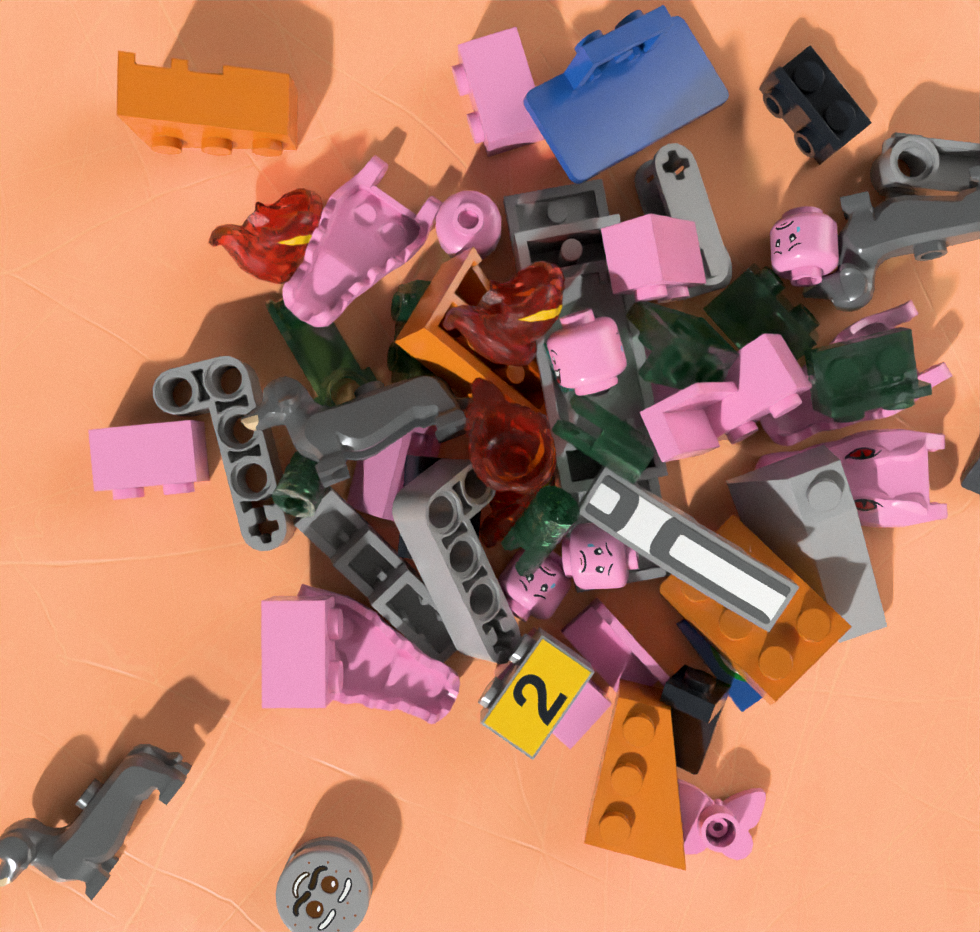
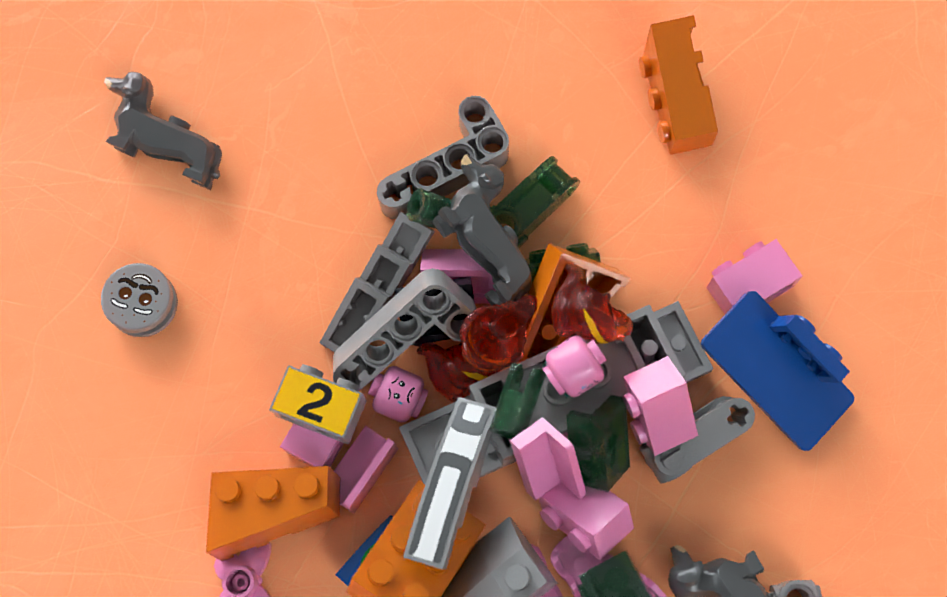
camera: 75 degrees right, 15 degrees down
(149, 456) = (425, 108): bright pink brick -> none
(272, 235) = (601, 150): clear red hair -> none
(300, 651) = (311, 234): bright pink brick -> none
(355, 245) = (614, 205): bright pink animal -> none
(386, 667) = (313, 284): bright pink animal -> none
(468, 221) = (650, 281): bright pink head -> none
(541, 528) = (440, 377): clear green hinge -> none
(597, 558) = (425, 427): bright pink head -> none
(695, 710) = (330, 540): black bracket -> none
(757, 306) = (654, 514): clear green bracket -> none
(804, 246) = (708, 533): bright pink head -> none
(813, 105) = (821, 519): black bracket -> none

